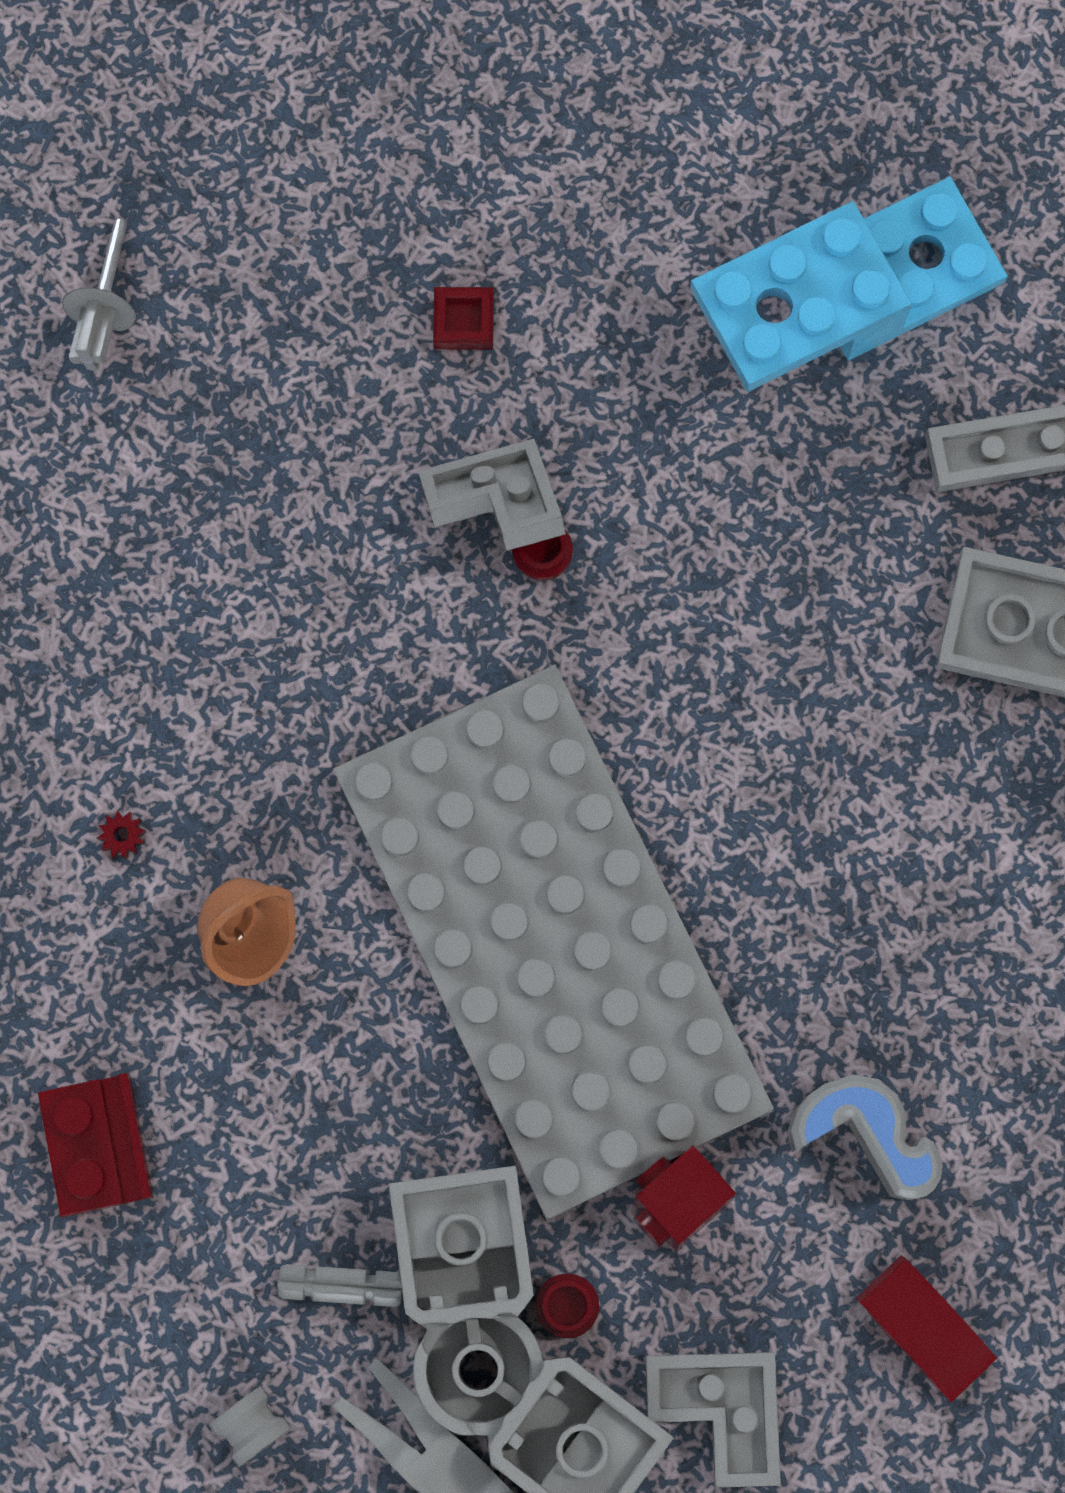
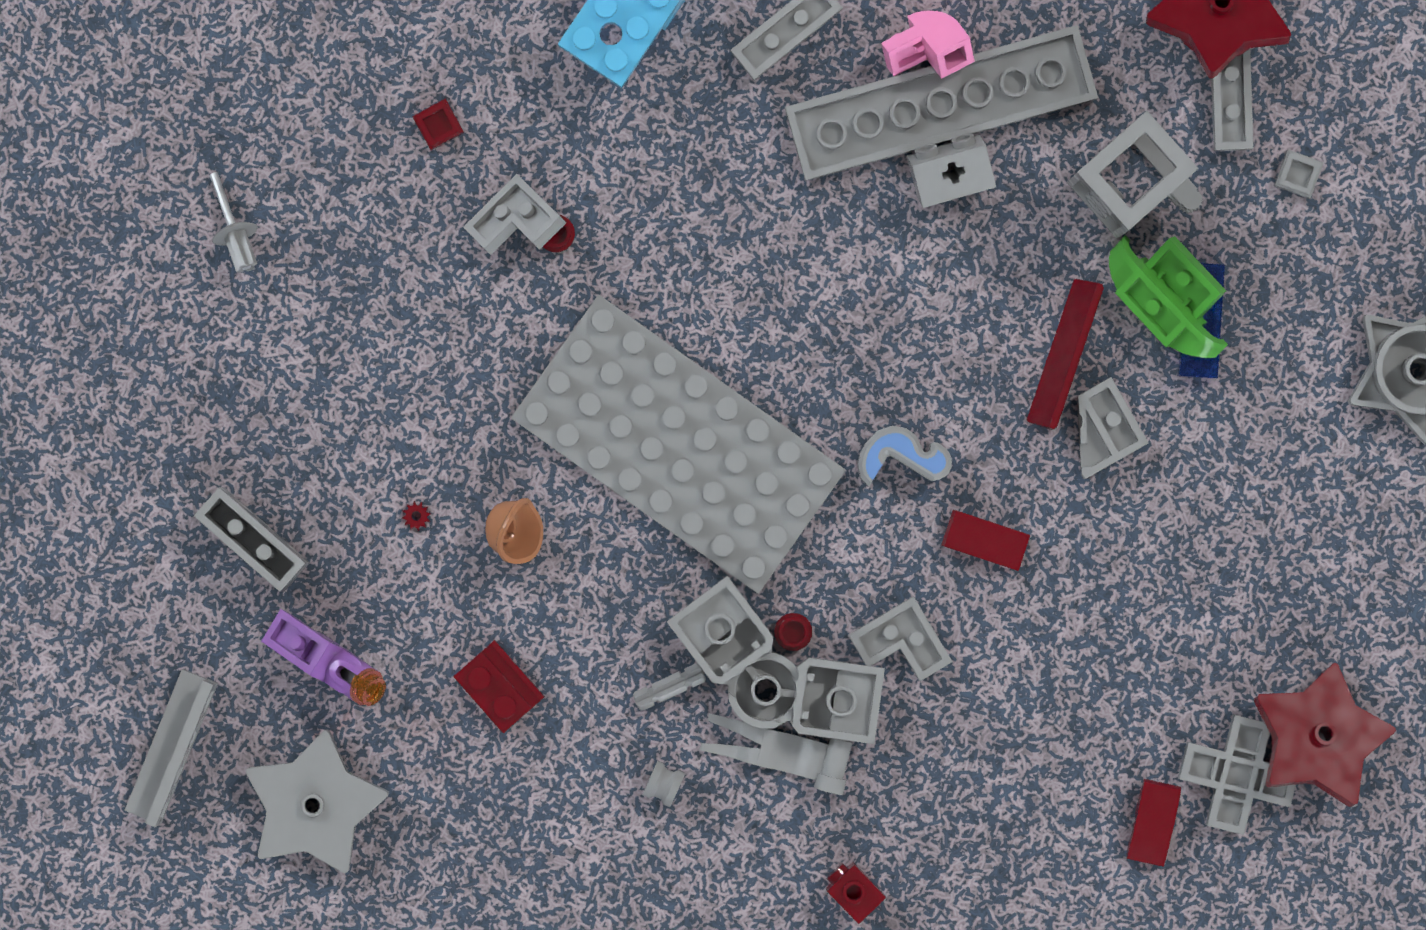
camera: 35 degrees left, 10 degrees up
(680, 1198) = (821, 544): dark red brick -> none

